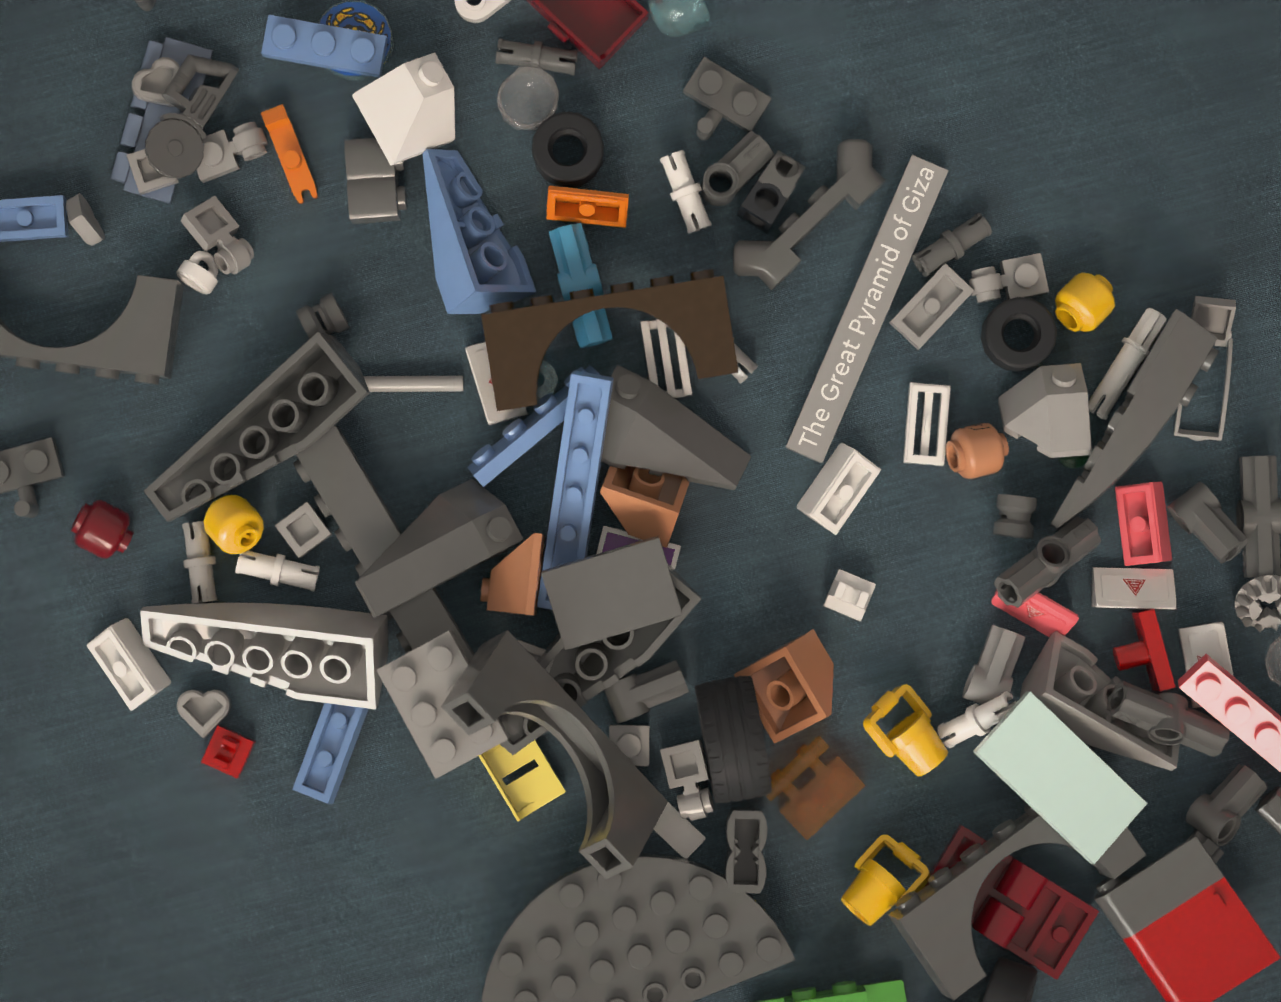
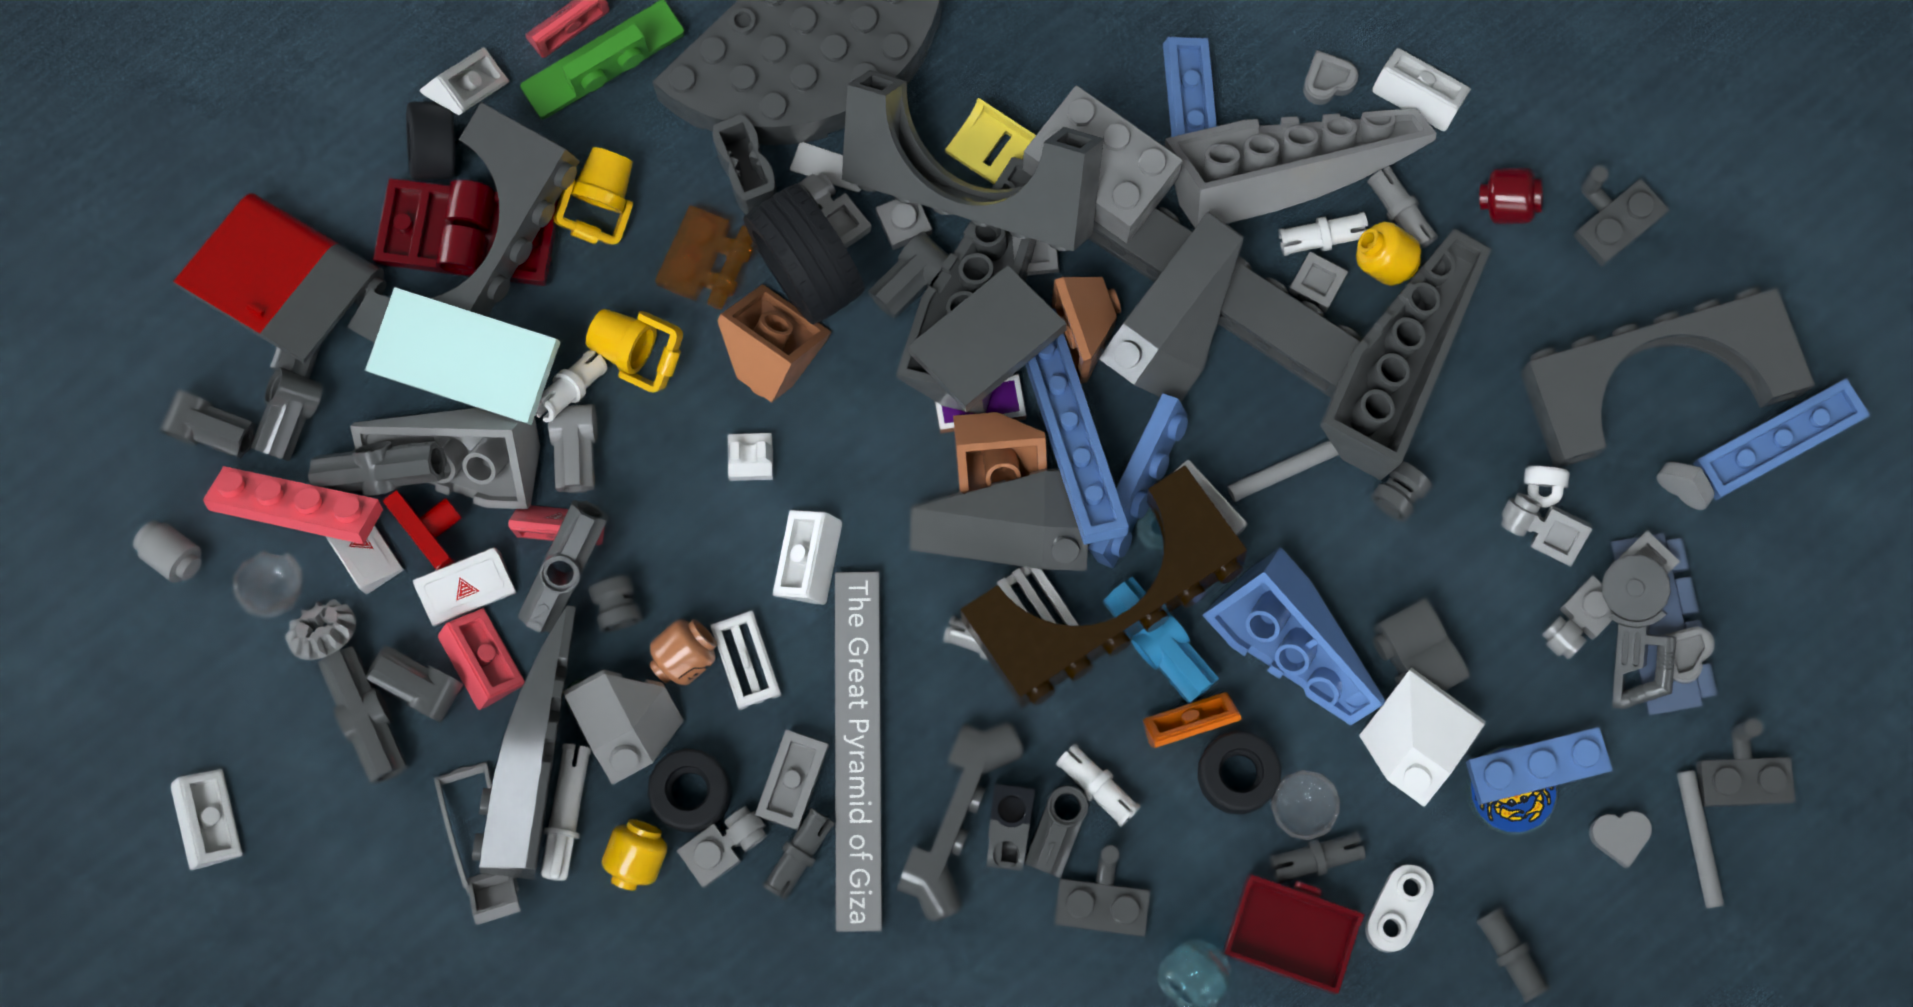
camera: 160 degrees right, 10 degrees down
(228, 751) = (1286, 49): red tile -> none
(289, 152) = (1518, 645): orange piece -> none

